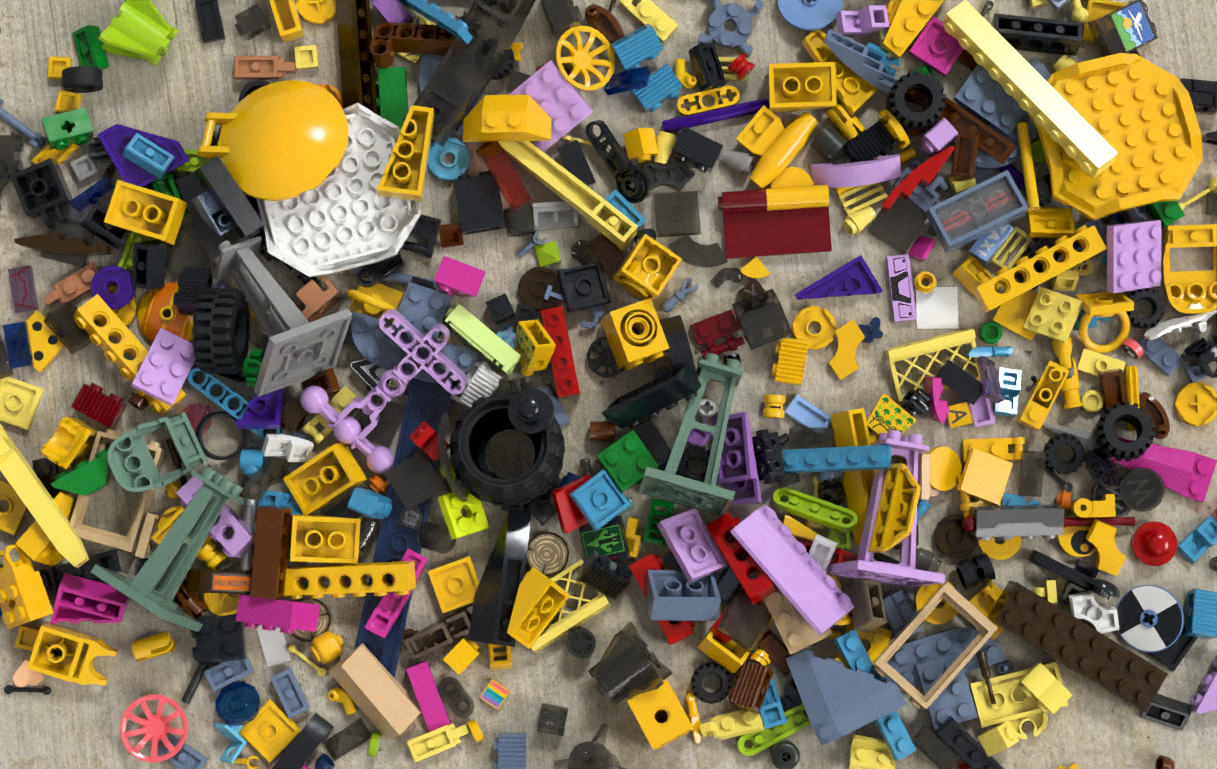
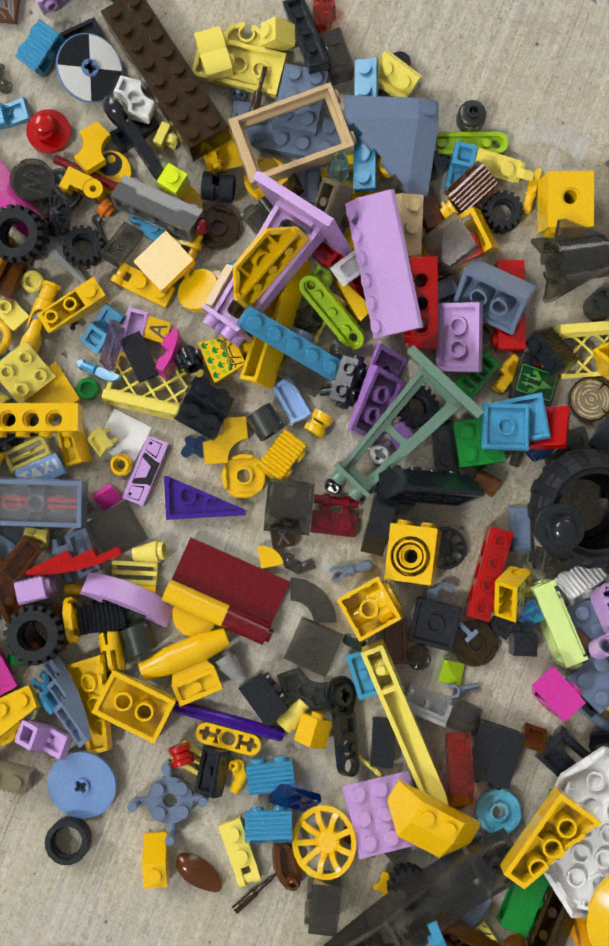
camera: 150 degrees left, 0 degrees up
(613, 482) = (505, 426): none -> dark azure tile
(820, 383) = (265, 422): none -> pearl dark grey piece
(875, 637) = (339, 167): none -> clear light blue cone
(880, 366) = (204, 407): none -> black plate
(909, 600) = (294, 184): none -> dark brown slope
(953, 291) = (100, 441): none -> light yellow tile
(1016, 551) = (173, 181): none -> neon yellow brick

